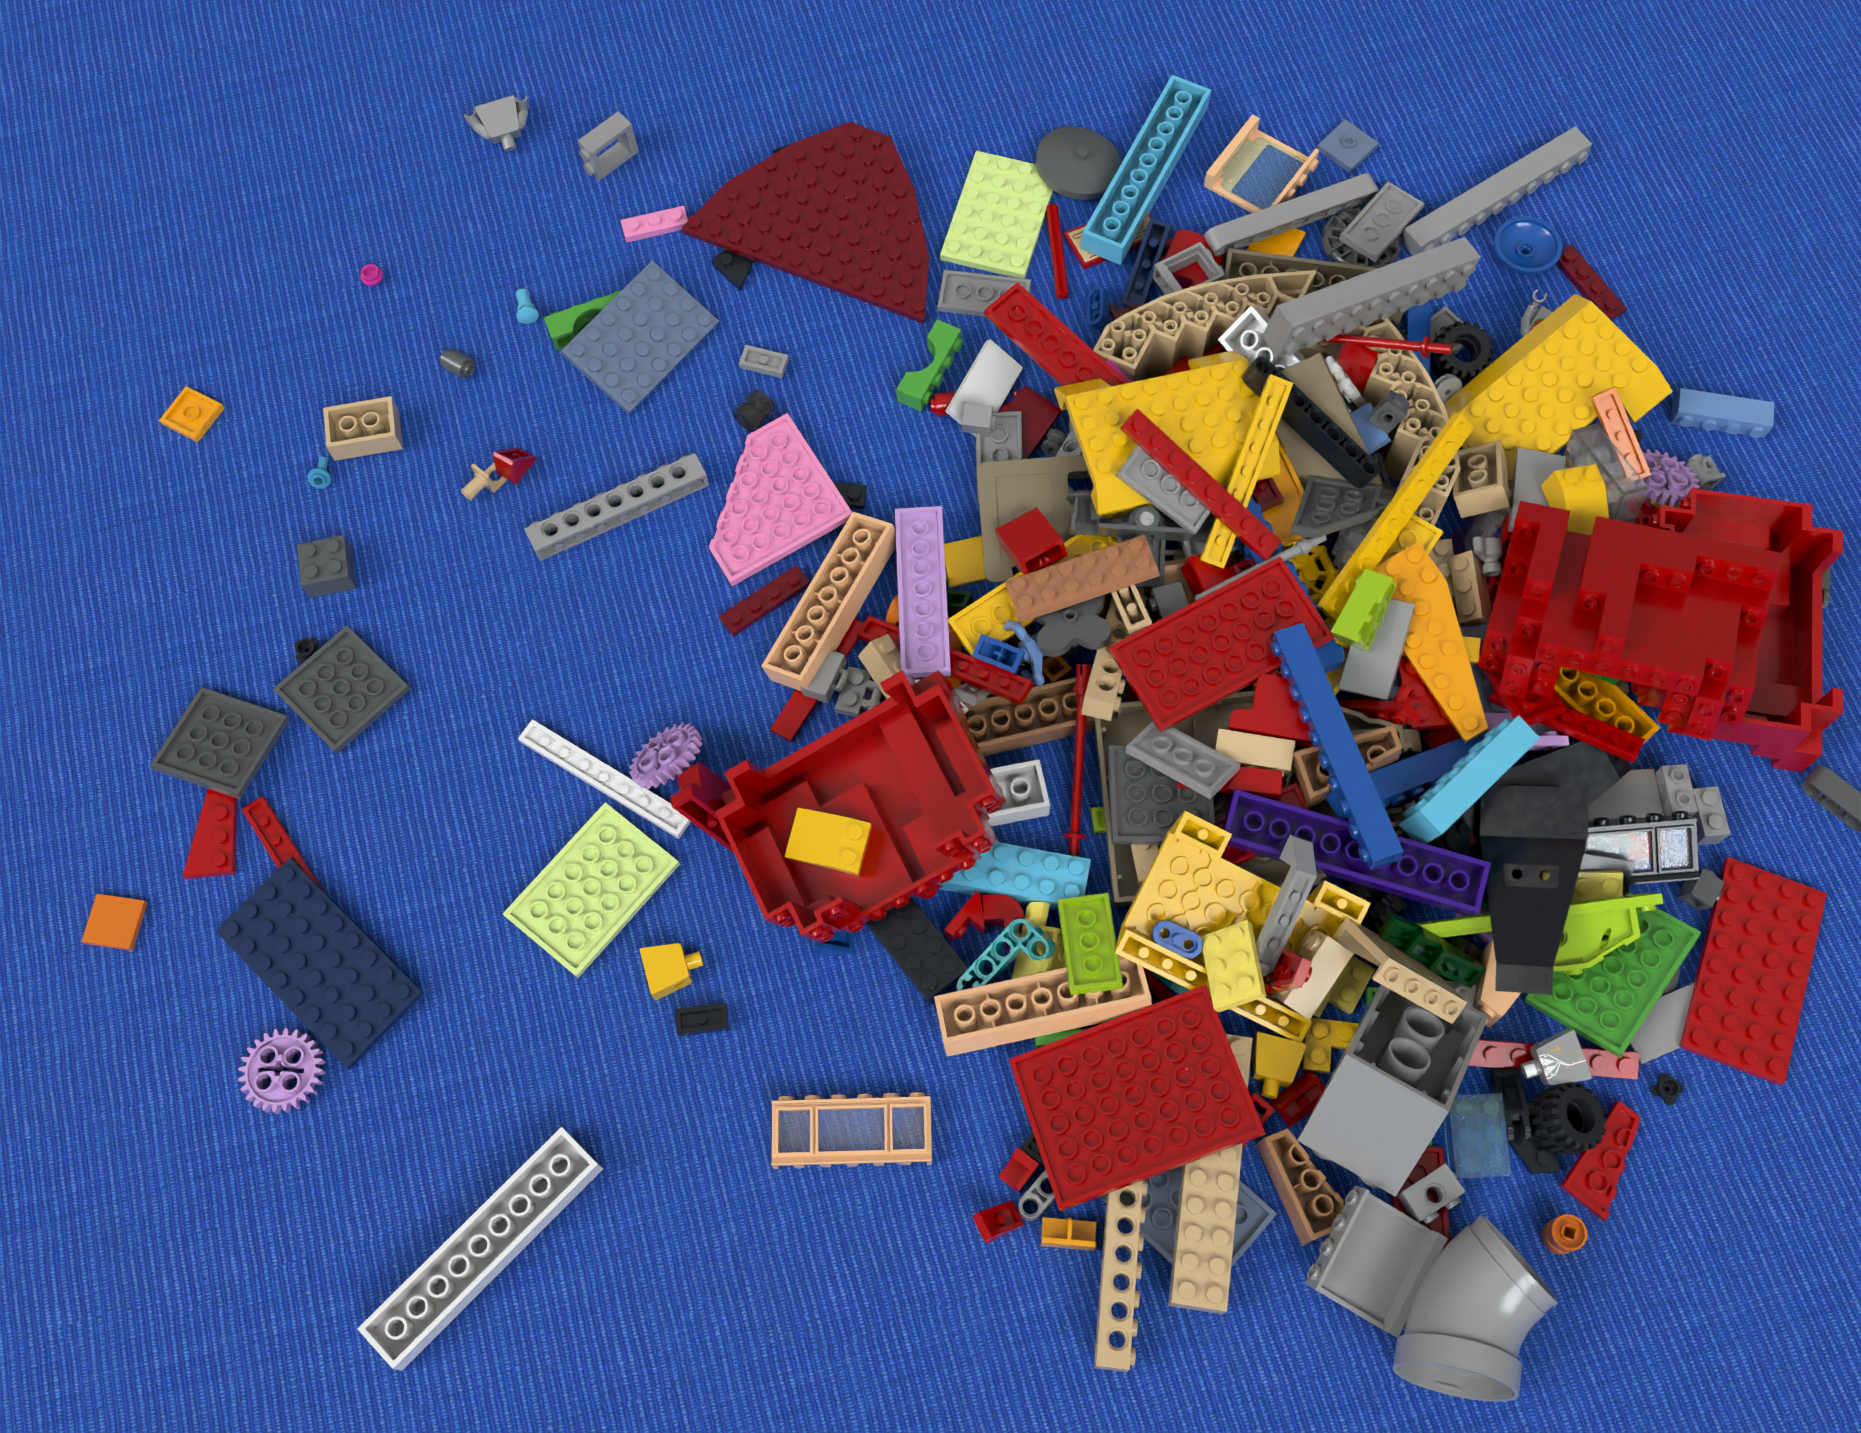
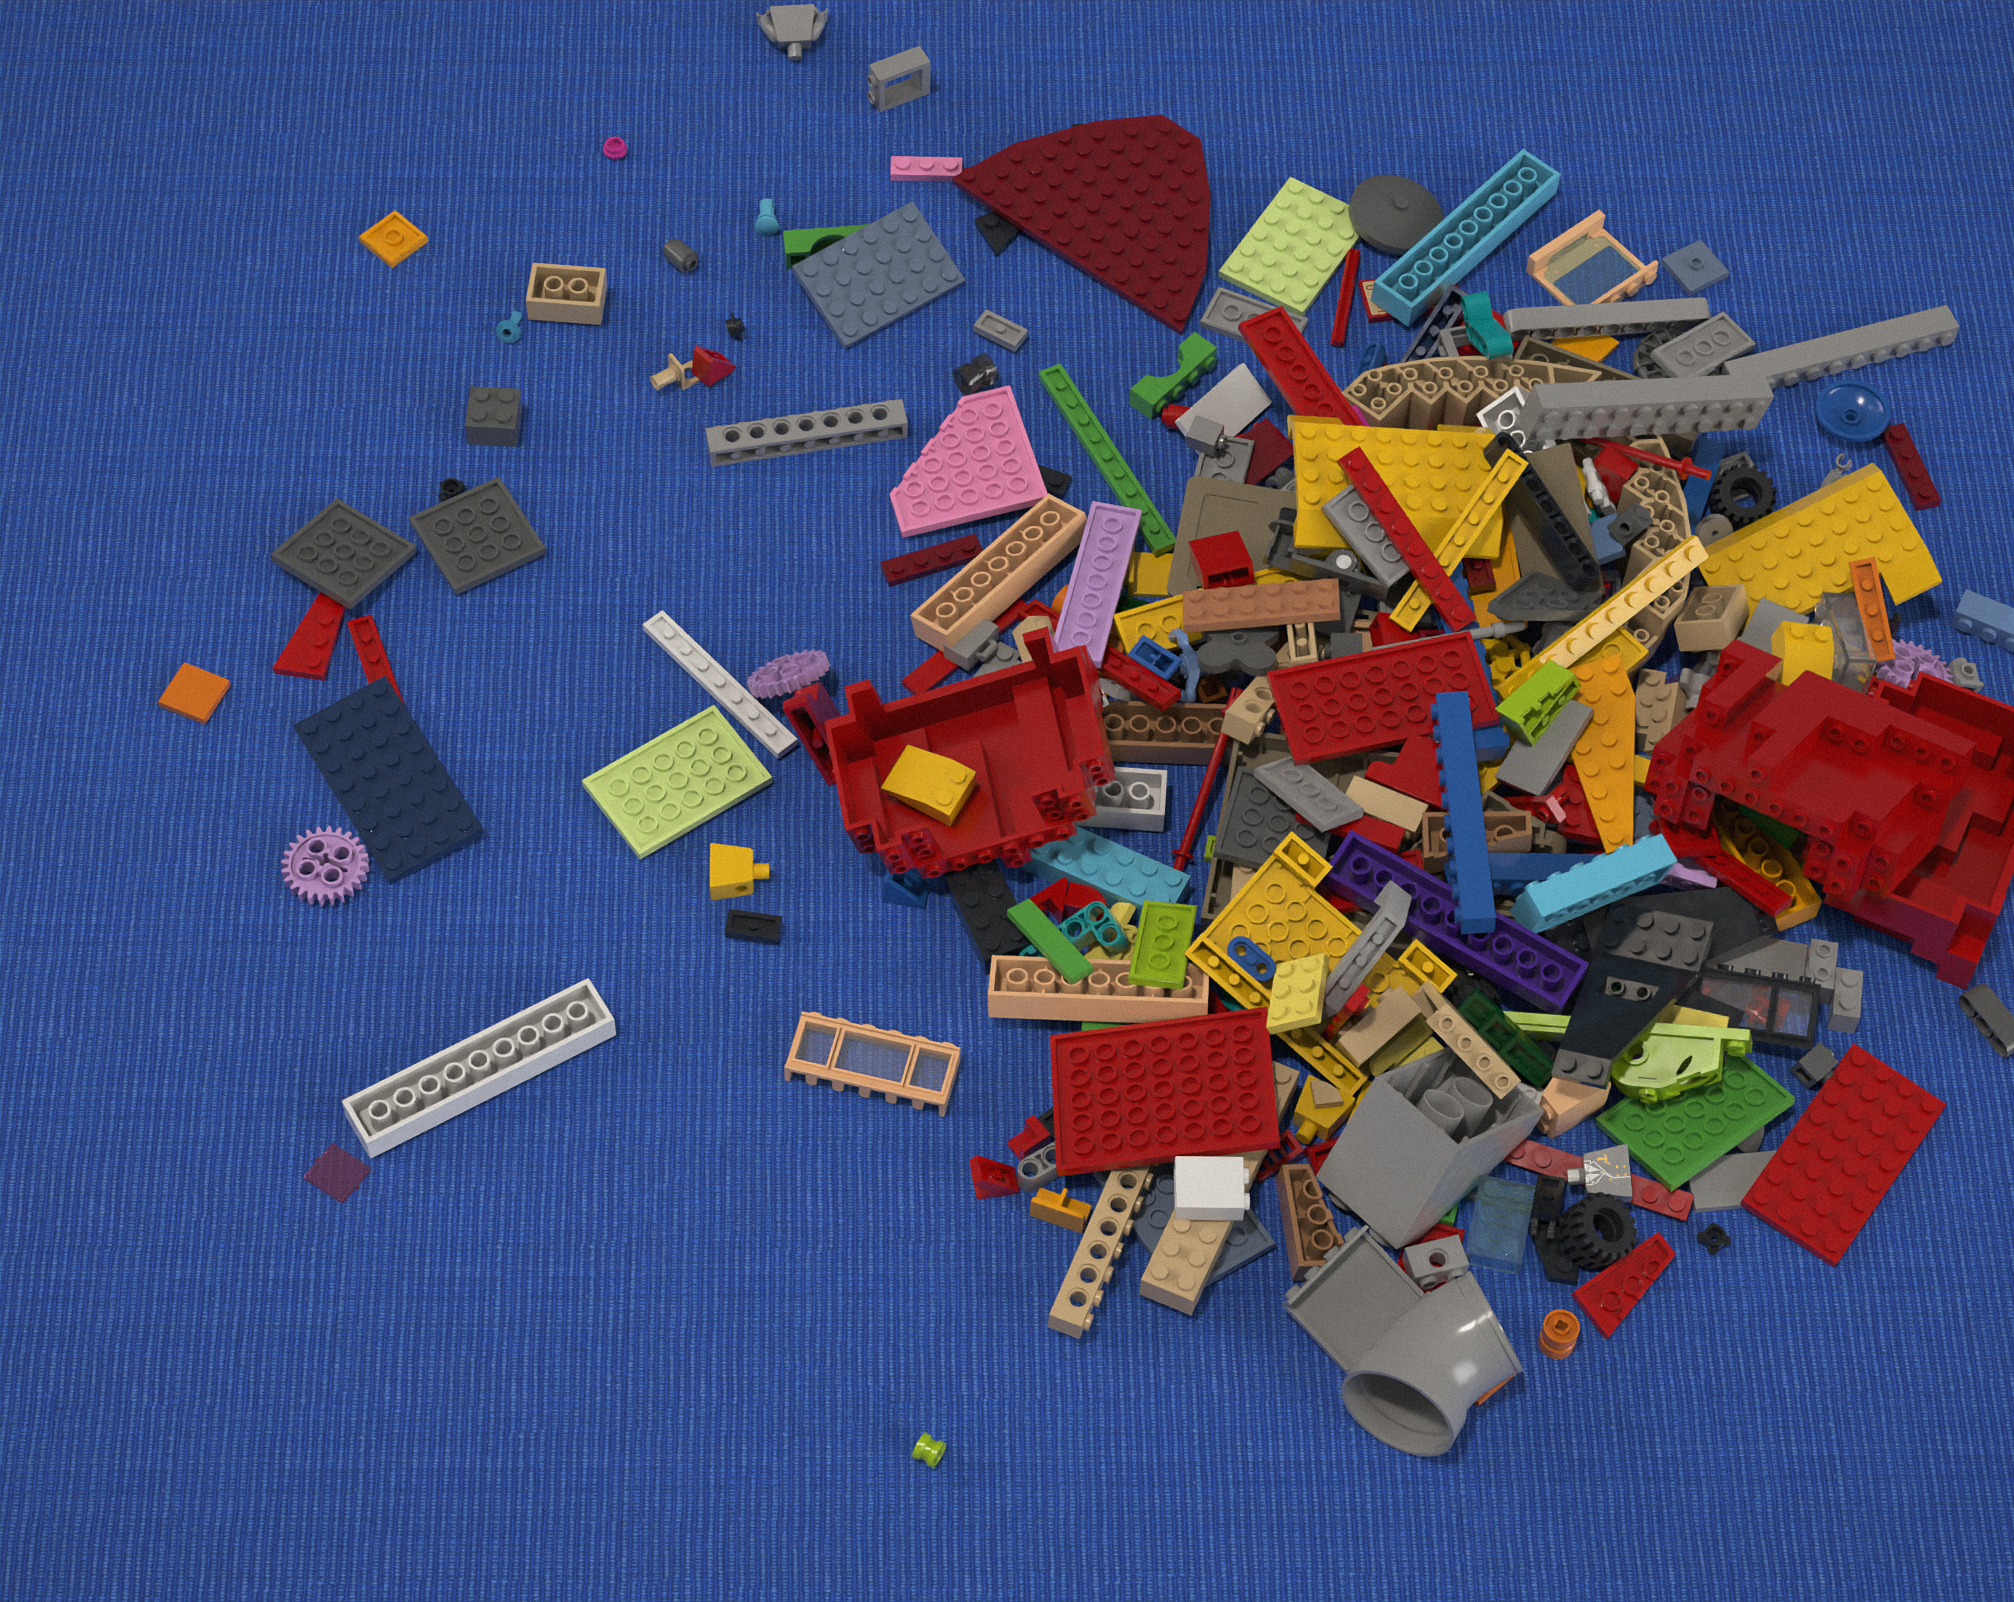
camera: 10 degrees right, 10 degrees down
(374, 1395) = (337, 1173): none -> clear pink piece
(525, 420) = (735, 326): none -> black plate
(894, 460) = (1106, 457): none -> bright green plate
(985, 969) = (1050, 941): none -> bright green tile
(1198, 256) = (1483, 329): none -> teal beam
(1210, 1192) = (1210, 1188): none -> white brick
(1279, 1050) = (1324, 1094): none -> tan tile

